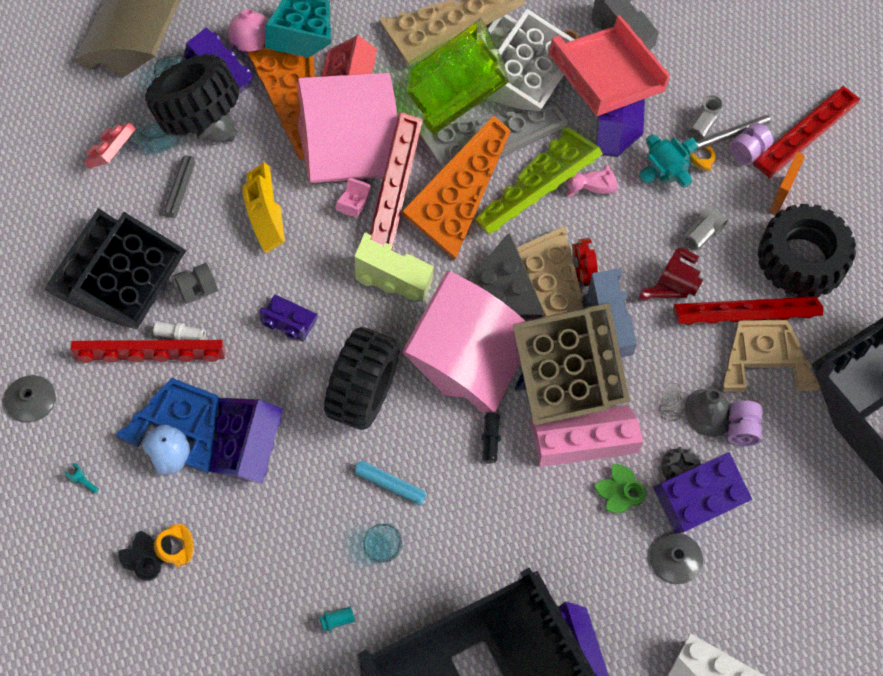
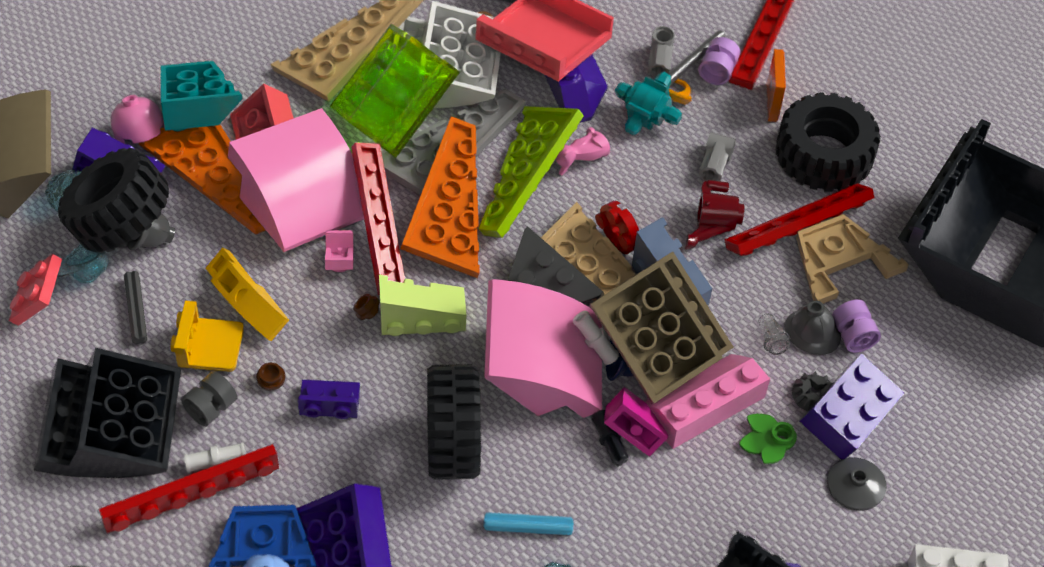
camera: 25 degrees left, 10 degrees down
(216, 234) = (206, 342): none -> yellow bracket
(252, 282) = (270, 376): none -> reddish brown plate
(349, 252) = (366, 307): none -> reddish brown plate
(512, 351) = (596, 337): none -> white pin
(515, 433) = (635, 422): none -> dark pink slope

